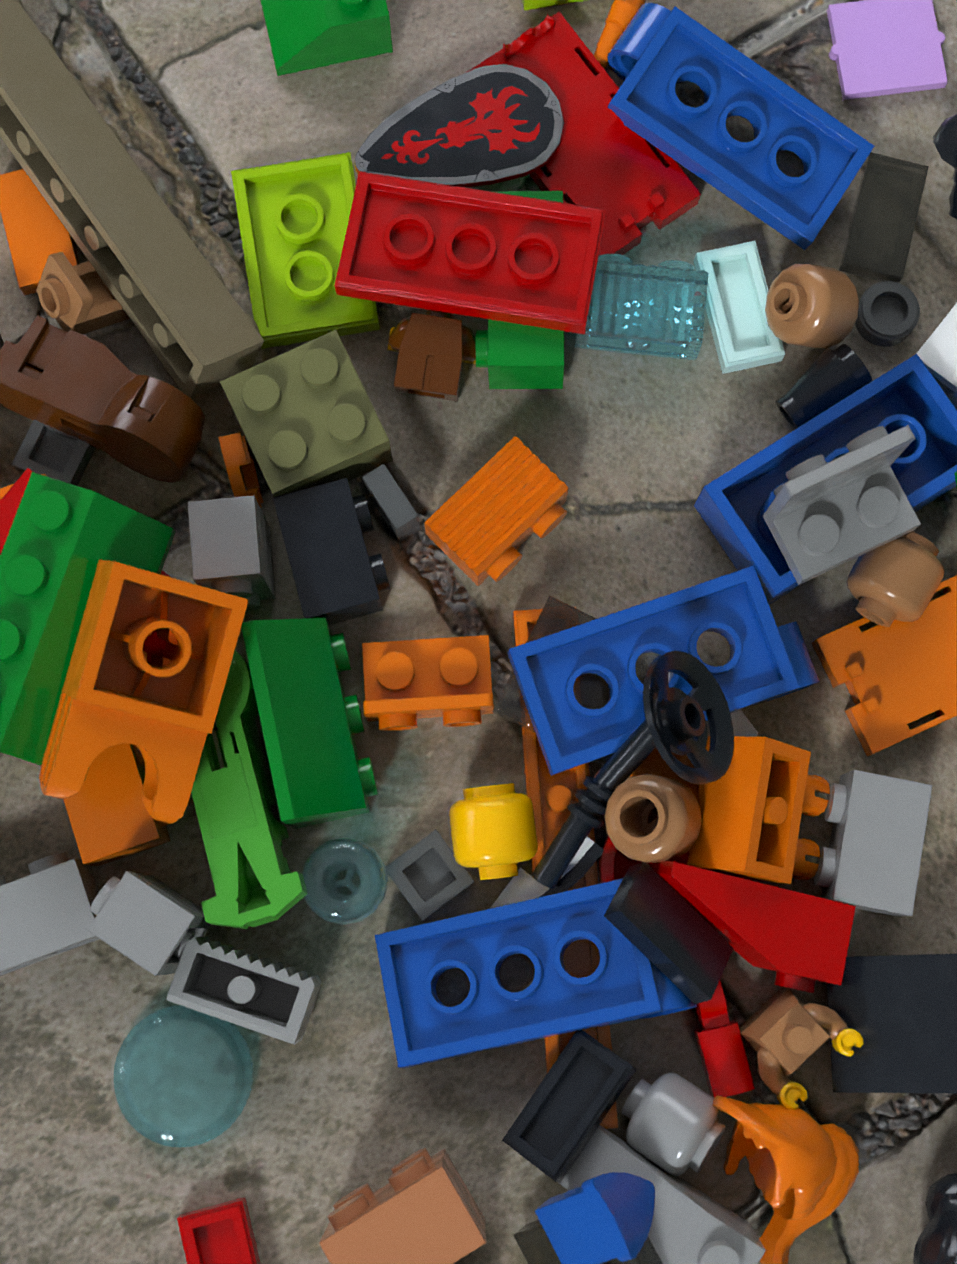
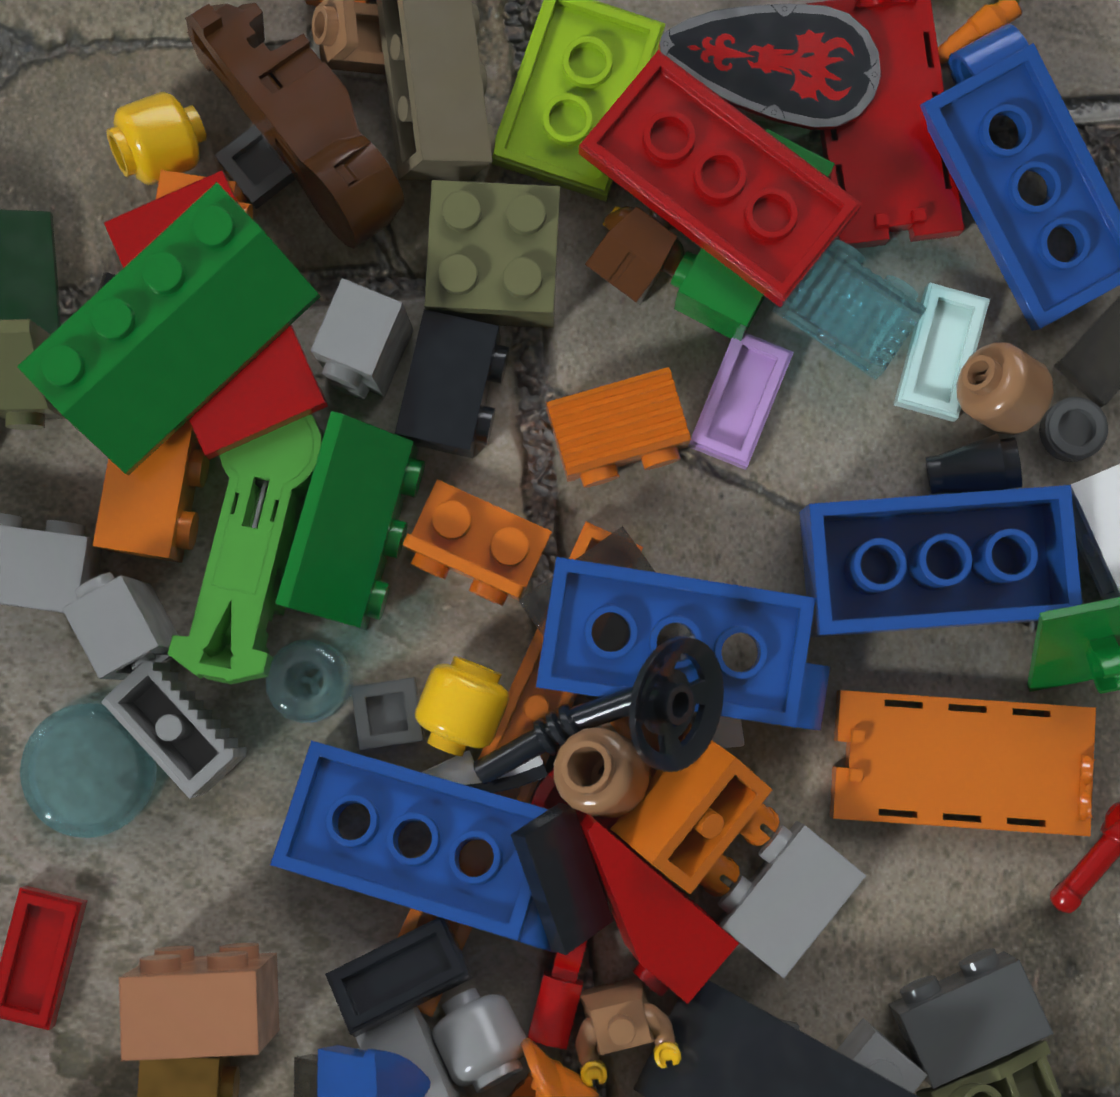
camera: 30 degrees right, 5 degrees up
(155, 705) = (196, 428): orange brick -> none
(240, 466) = (411, 269): orange tile -> none
(391, 503) = (528, 368): dark grey tile -> none
(590, 436) = (740, 400): none -> lavender tile
(842, 506) = (919, 593): light grey bracket -> none
(896, 579) = (939, 674): medium nougat head -> none

